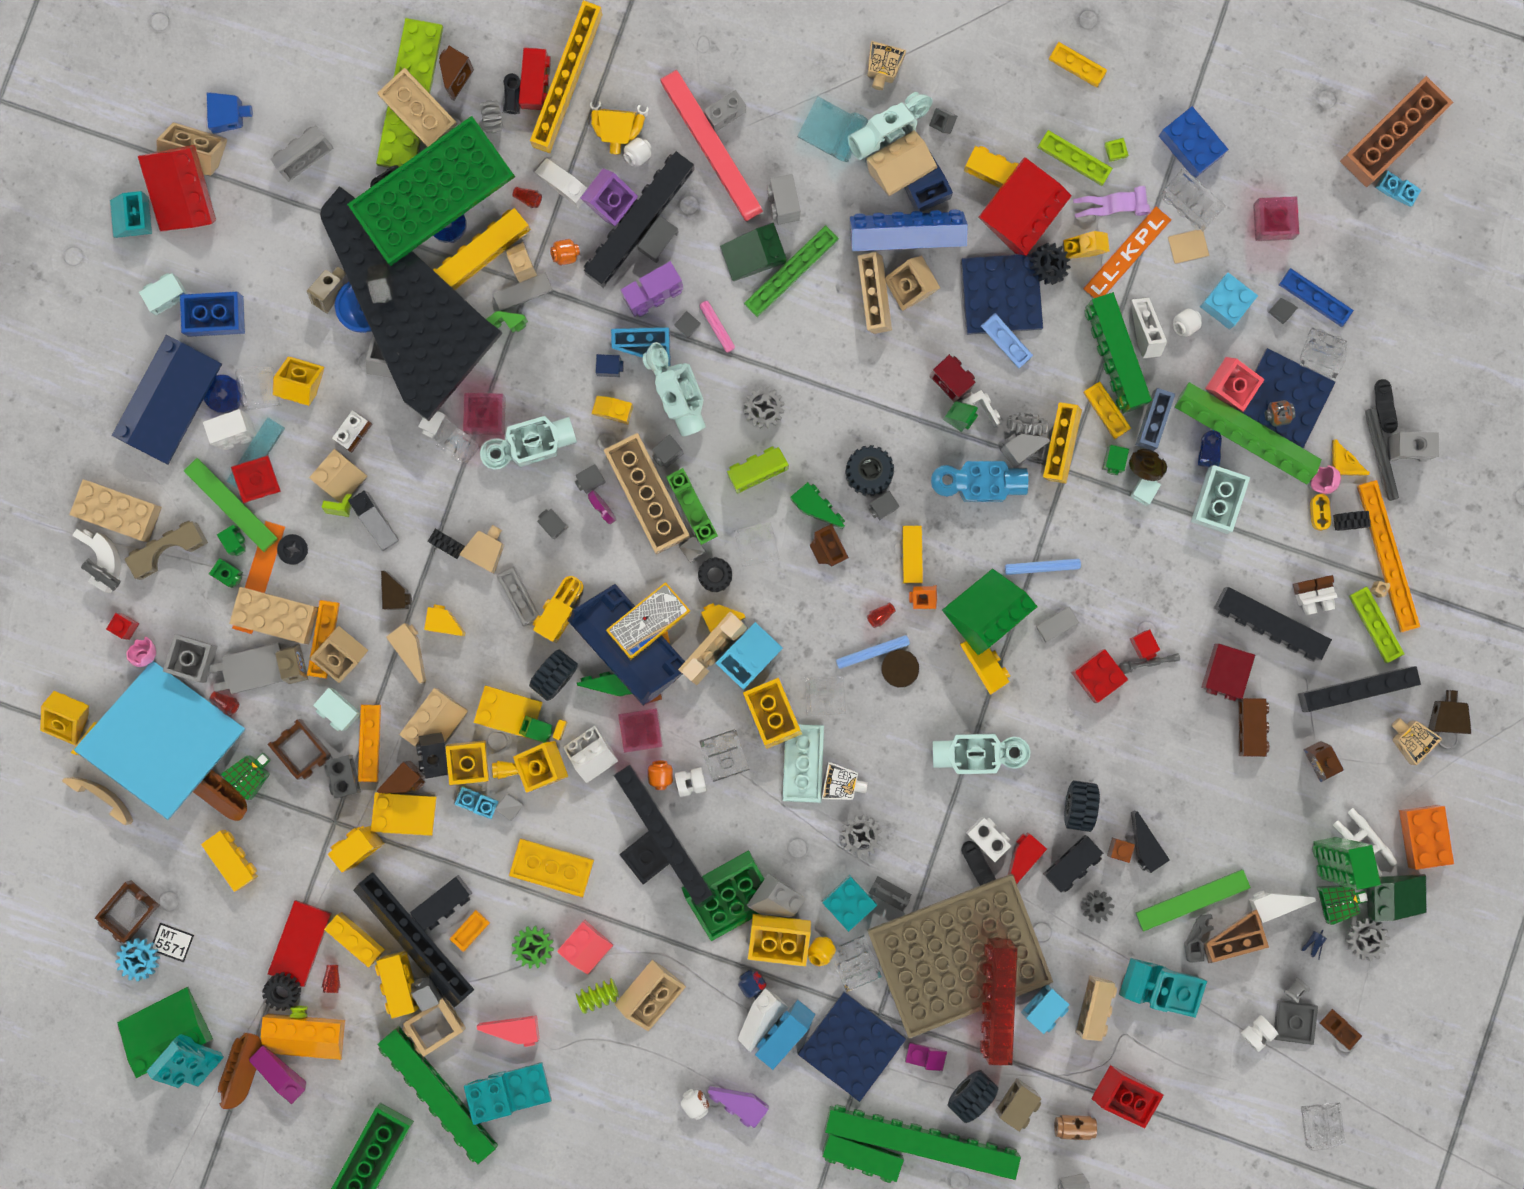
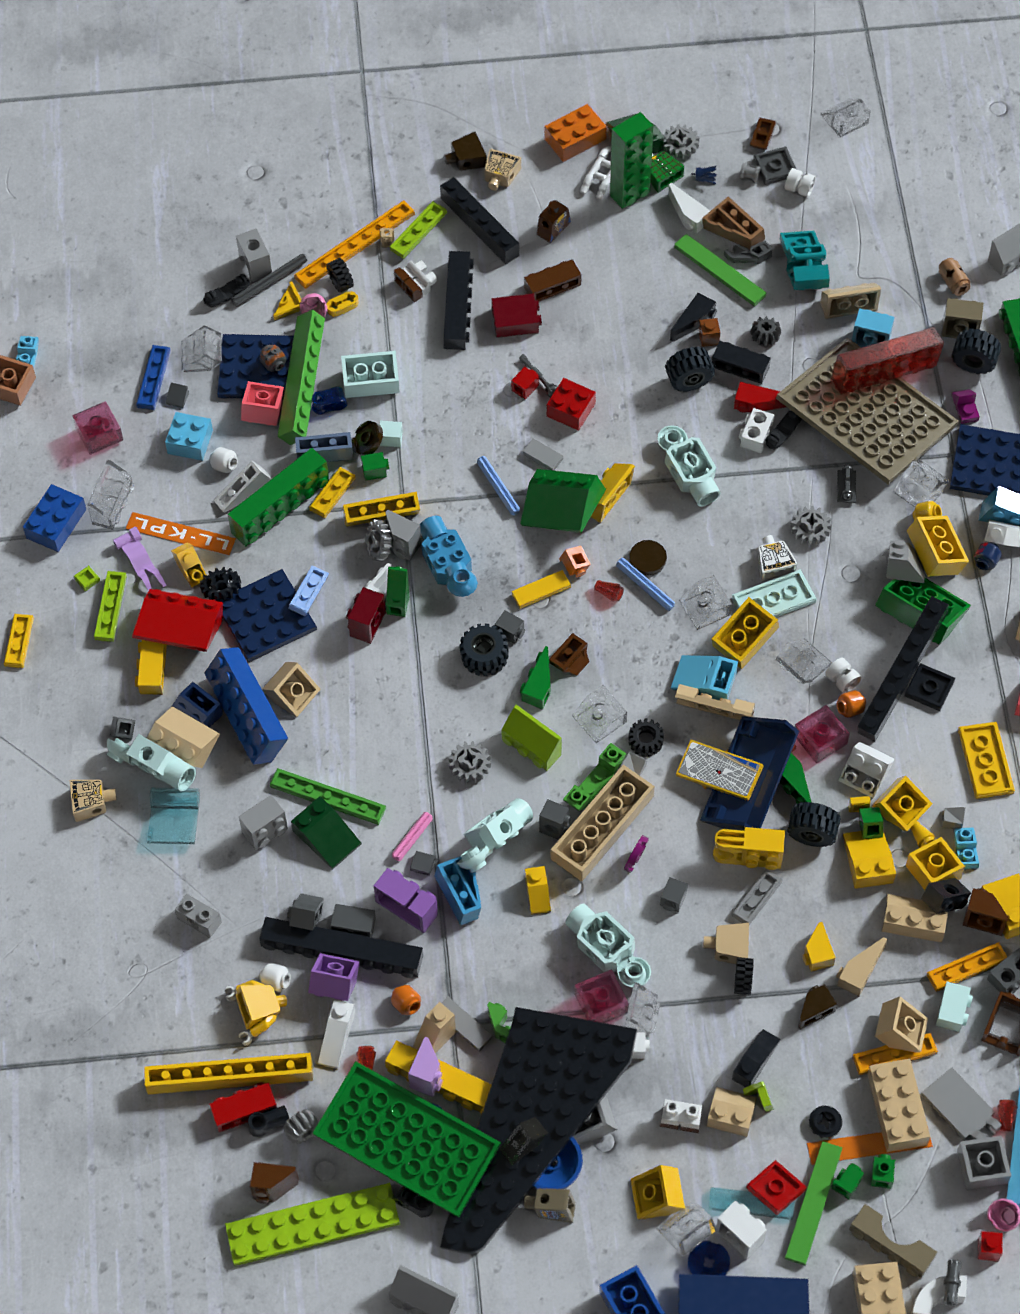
camera: 115 degrees left, 25 degrees down
(291, 664) = (935, 1063): dark tan torso -> none
(416, 108) = (326, 1200): tan plate -> none
(480, 231) = (425, 1070): none -> lavender slope
(589, 479) = (614, 880): dark grey brick -> none
(609, 365) = (497, 911): dark blue brick -> none
(681, 199) = (305, 911): none -> dark grey brick
(711, 145) = (237, 916): coral beam -> none
(715, 614) = (683, 715): yellow slope -> none
(849, 903) = (873, 510): teal brick -> none
(874, 293) = (317, 711): tan brick -> none
(1127, 1097) = (907, 253): red slope -> none
(1188, 246) = (151, 490): tan sticker -> none

